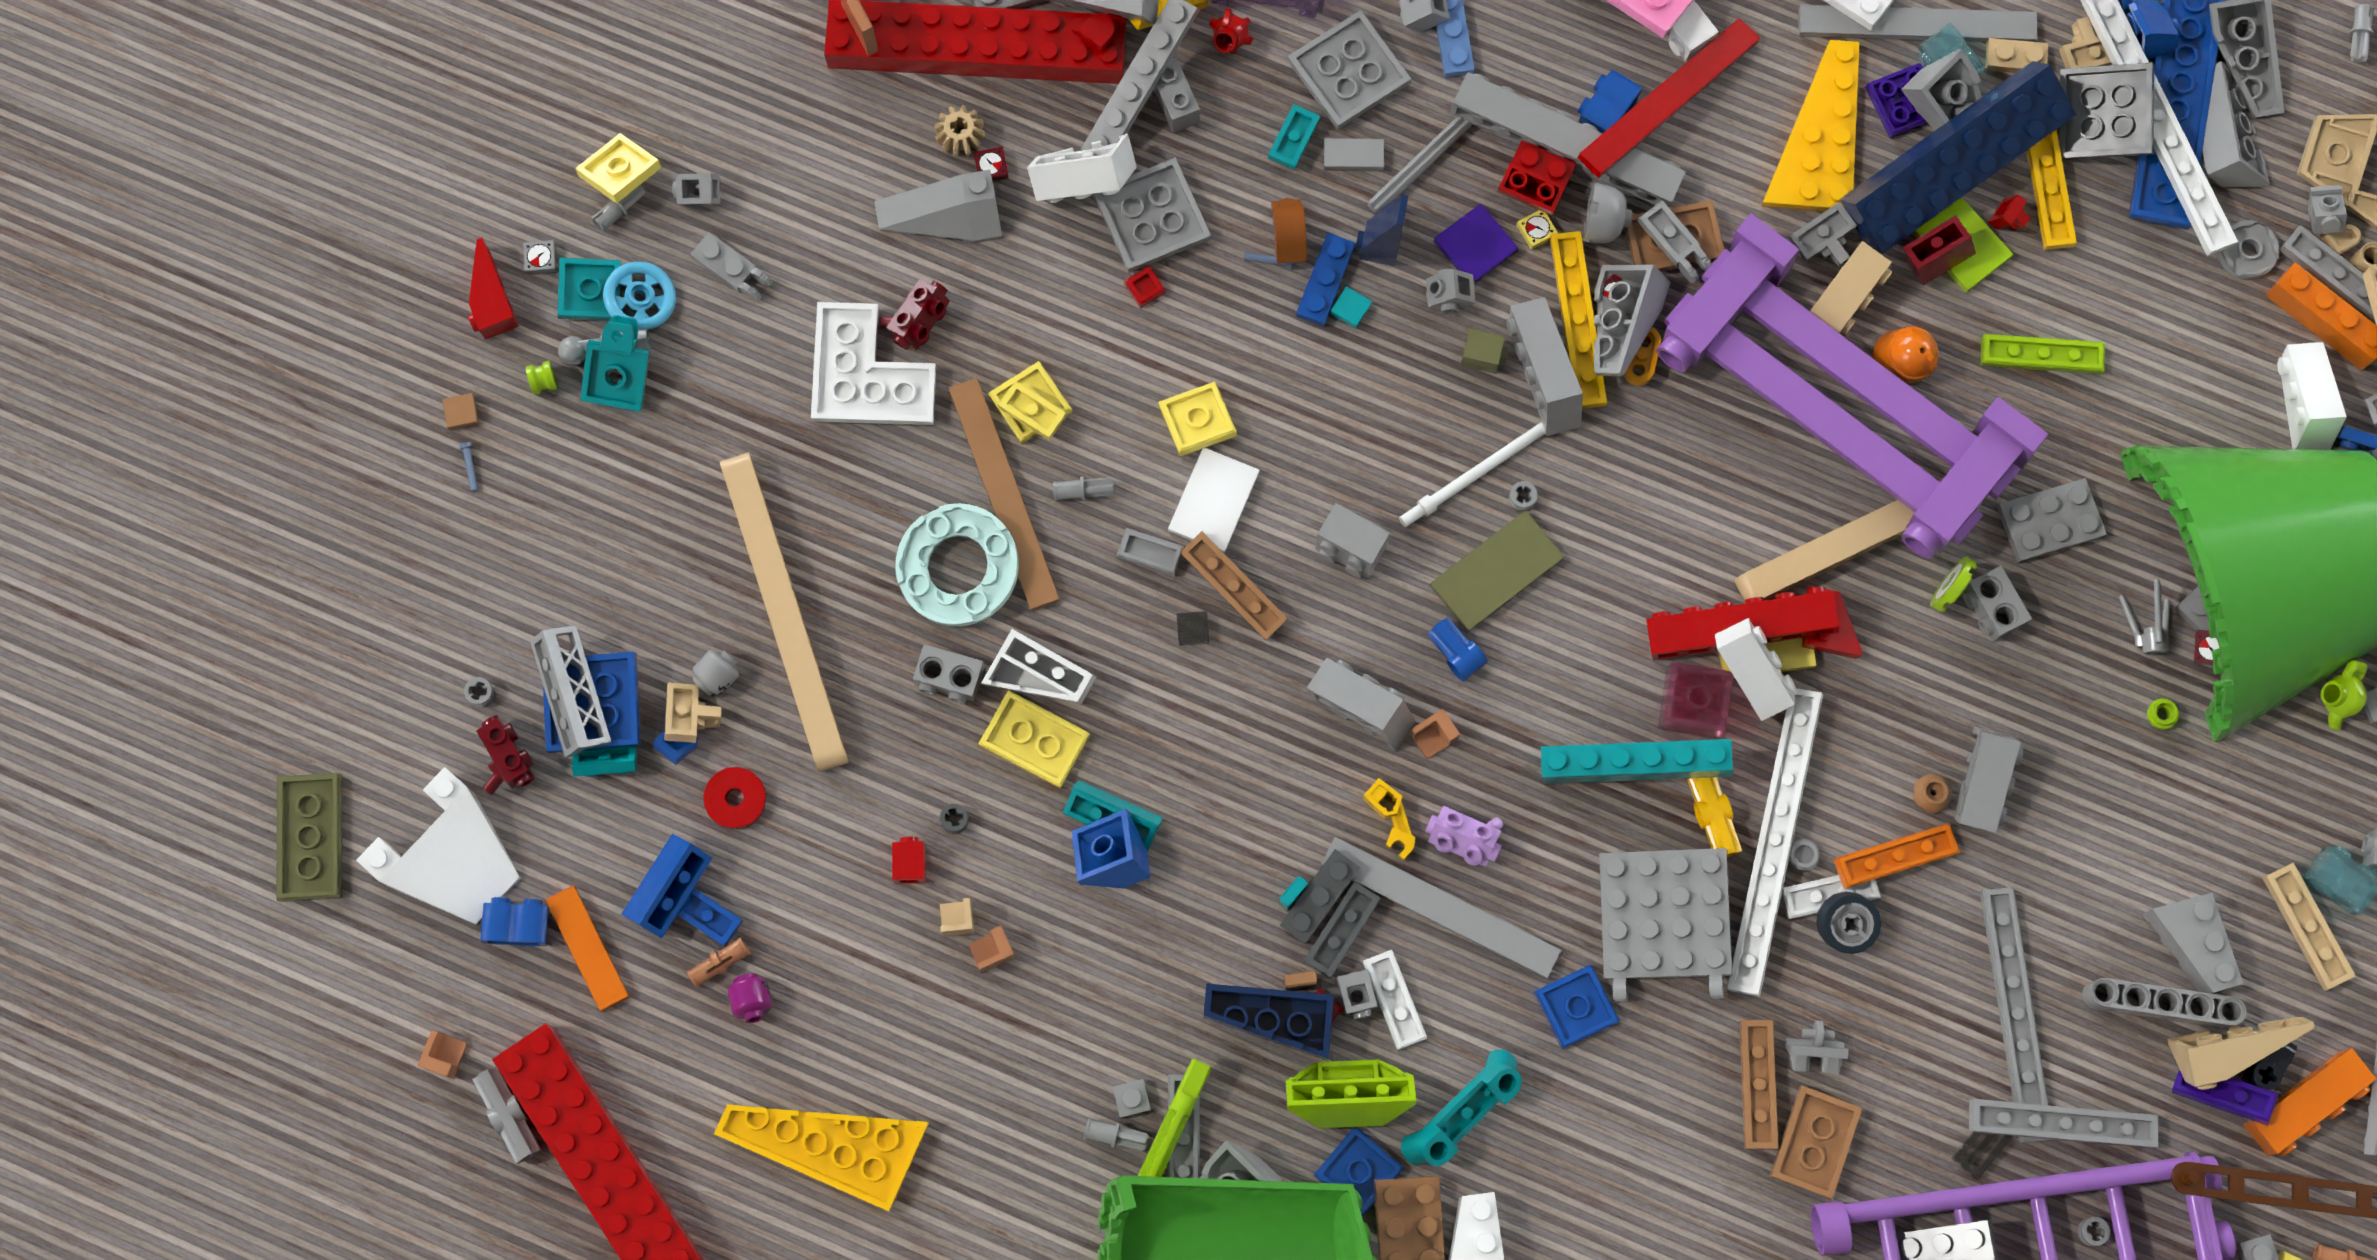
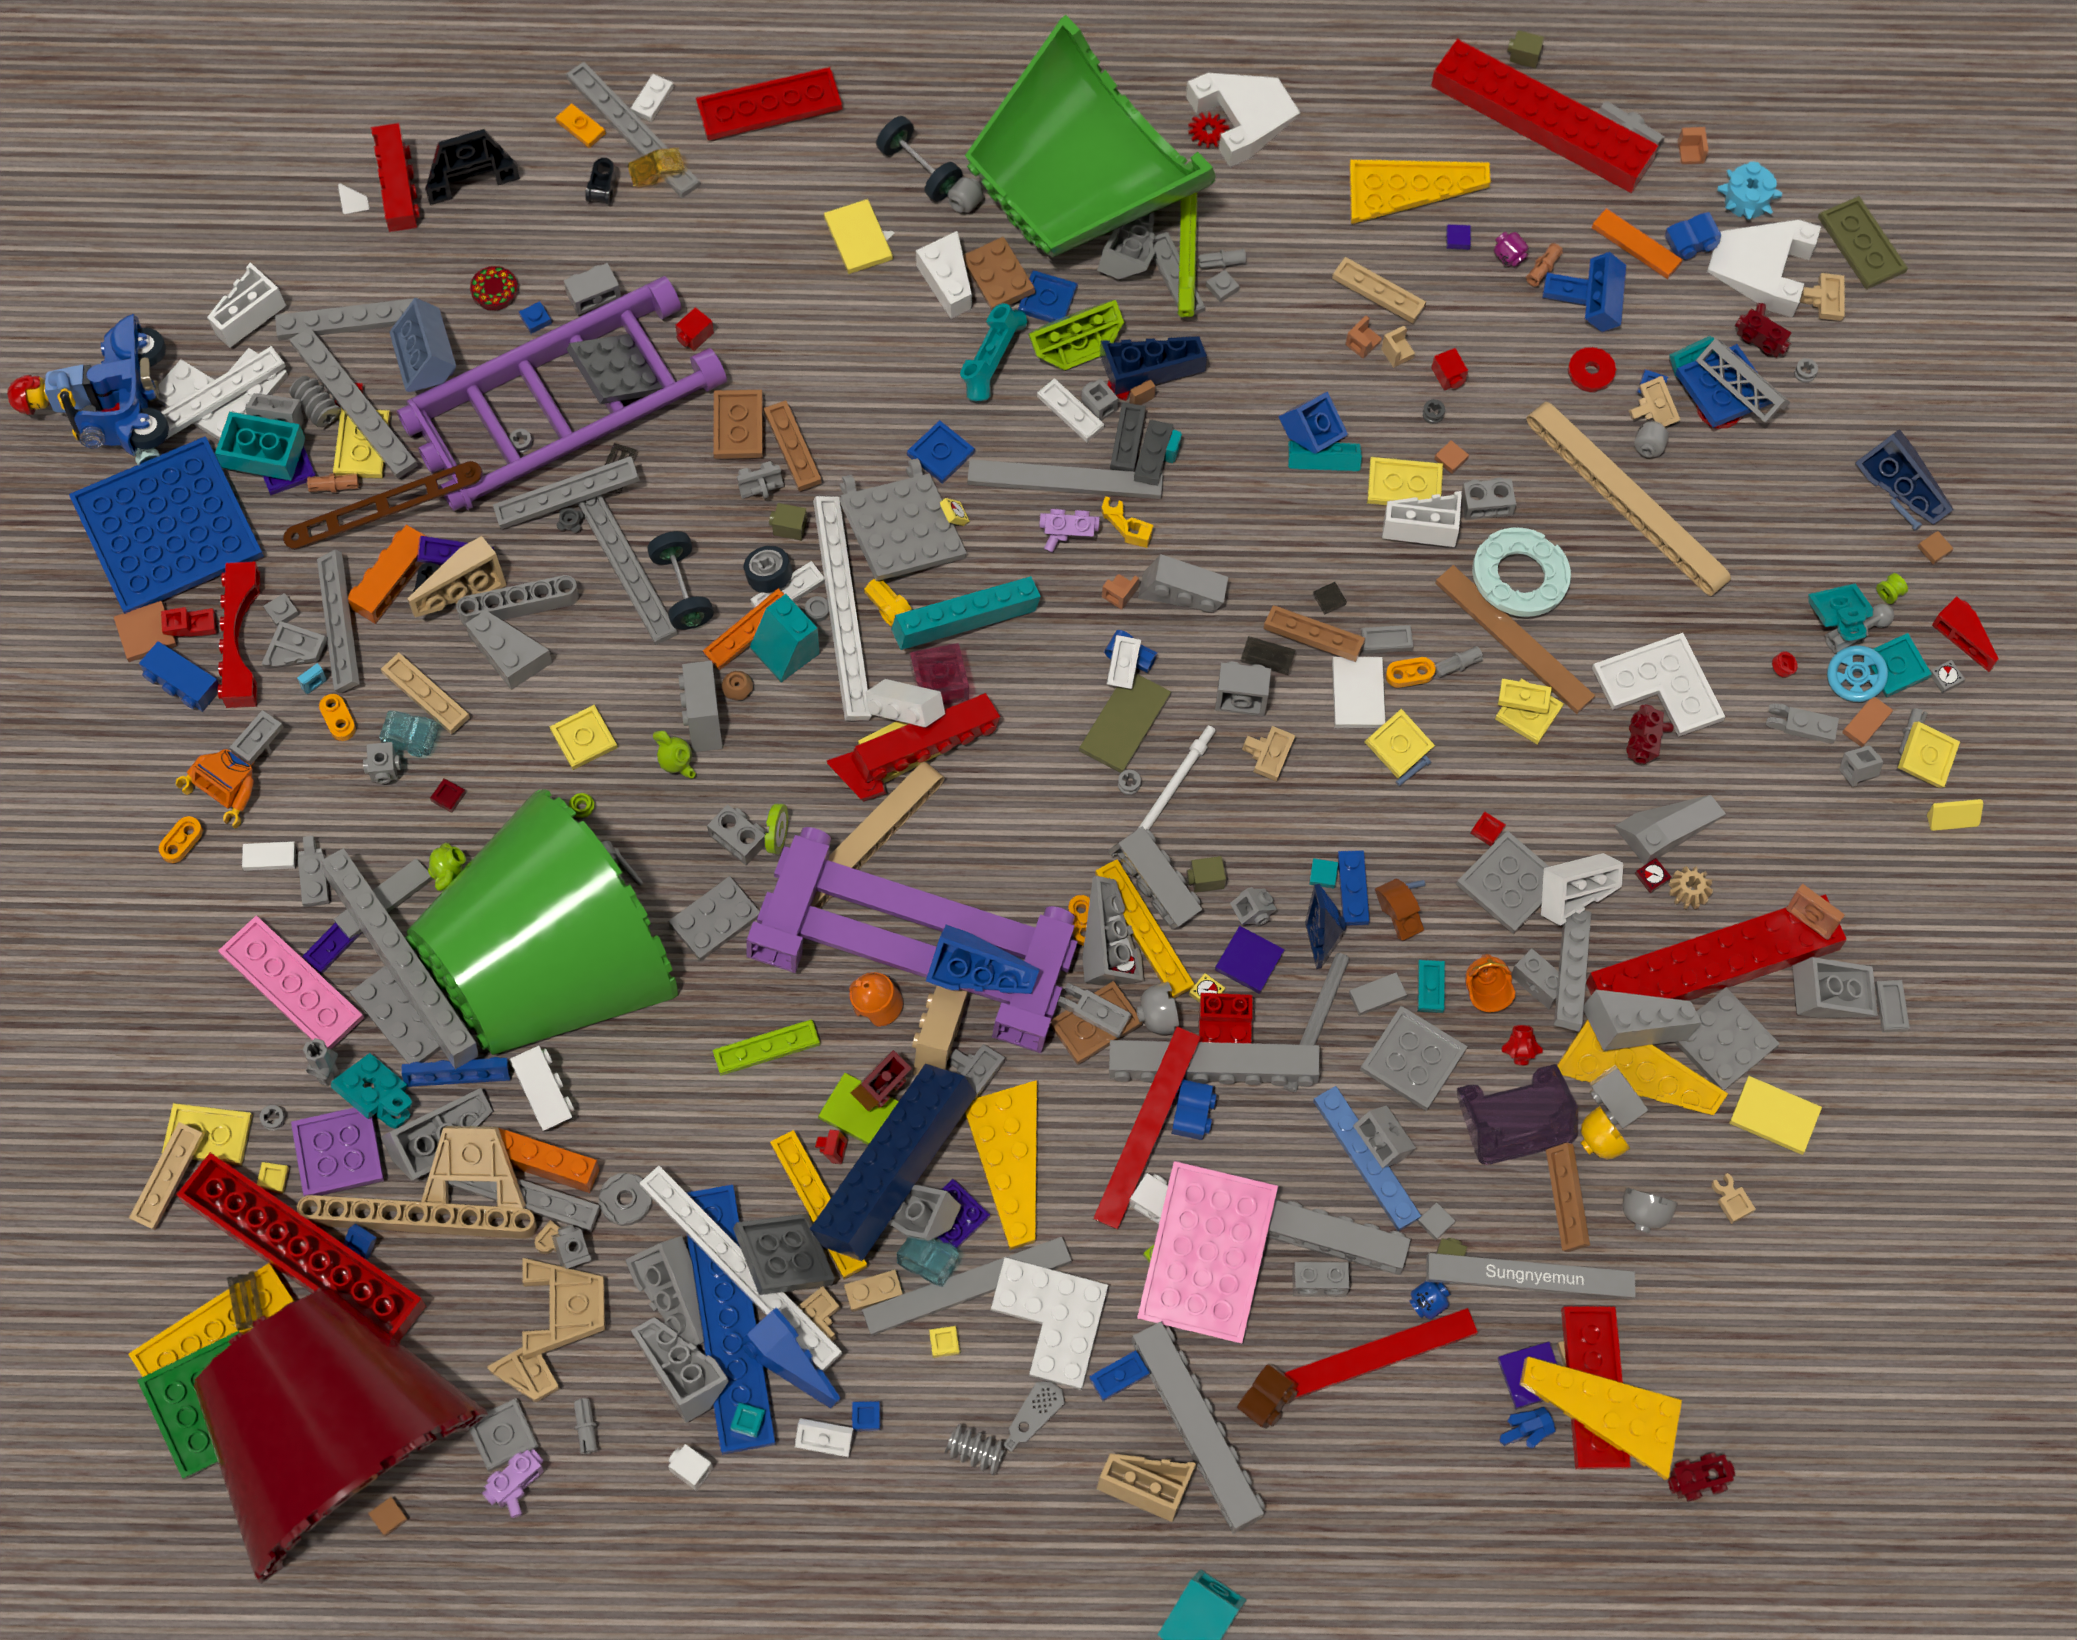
camera: 155 degrees right, 10 degrees down
(396, 776) = (1827, 296): none -> tan hinge
(423, 967) = (1750, 190): none -> medium azure brick
(444, 516) = (1903, 474): none -> dark blue wedge
(626, 101) = (1955, 814): none -> light yellow slope
(659, 240) = (1867, 721): none -> nougat tile
(714, 340) = (1784, 664): none -> red tile
(803, 1048) = (1458, 236): none -> dark purple tile
(941, 1009) = (1379, 290): none -> tan plate
(962, 750) = (1451, 456): none -> nougat tile
(1144, 498) = (1409, 671): none -> light orange plate
(1184, 388) = (1424, 761): none -> sand blue piece
(1234, 107) = (1495, 989): none -> orange helmet
(1298, 582) = (1268, 654): none -> clear smoke plate
(1348, 465) = (1269, 752): none -> tan hinge
(1476, 627) = (1123, 662): none -> white plate
(1594, 912) = (954, 511): none -> light yellow tile
(1800, 979) = (788, 521): none -> olive brick
(1804, 333) = (975, 964): none -> blue wedge
(1858, 815) = (785, 638): none -> teal slope
(1962, 897) = (670, 549): none -> black axle
(2040, 725) = (673, 754): none -> lime piece
(2074, 1089) = (565, 515): none -> dark grey plate
(2134, 800) = (583, 737): none -> light yellow tile
(2314, 789) = (447, 795): none -> dark red tile

